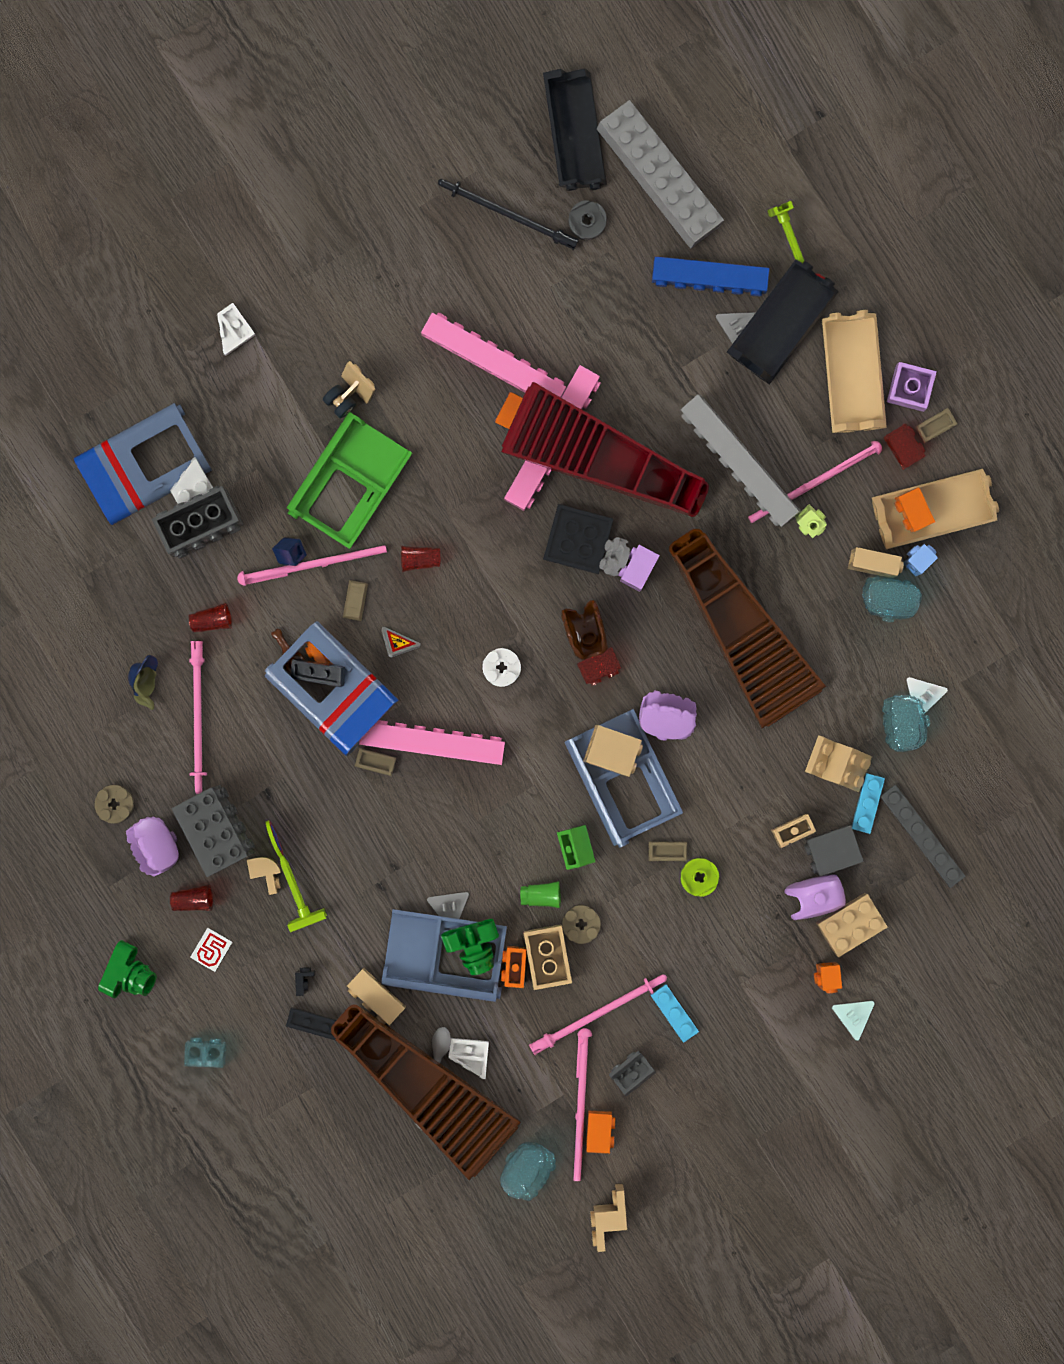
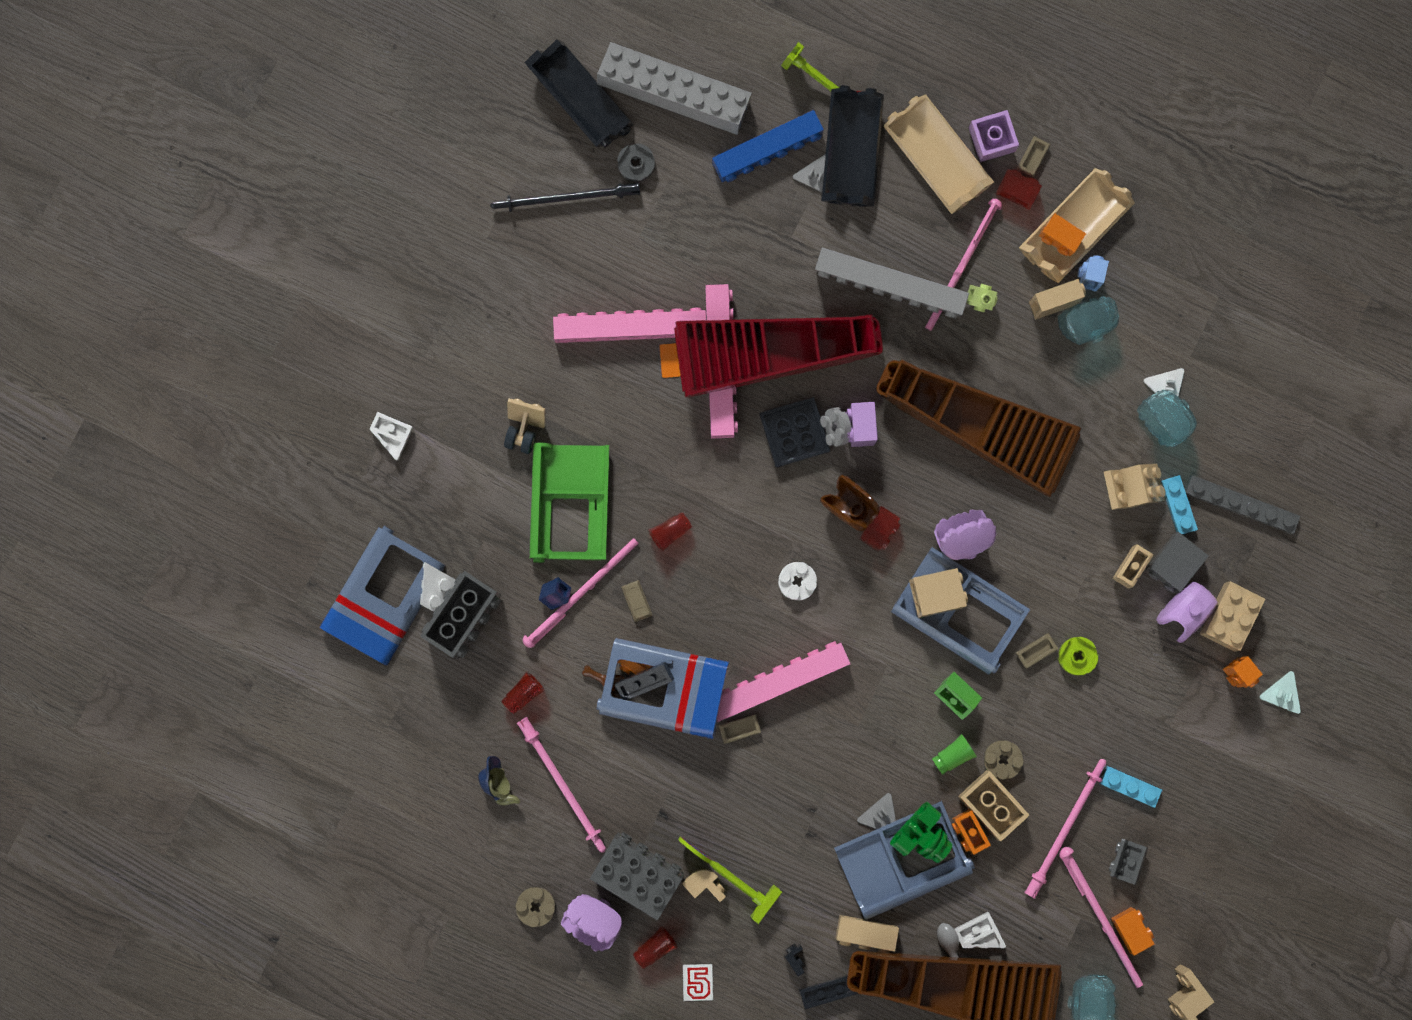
camera: 35 degrees left, 5 degrees down
(397, 643) = (696, 615): piece -> none

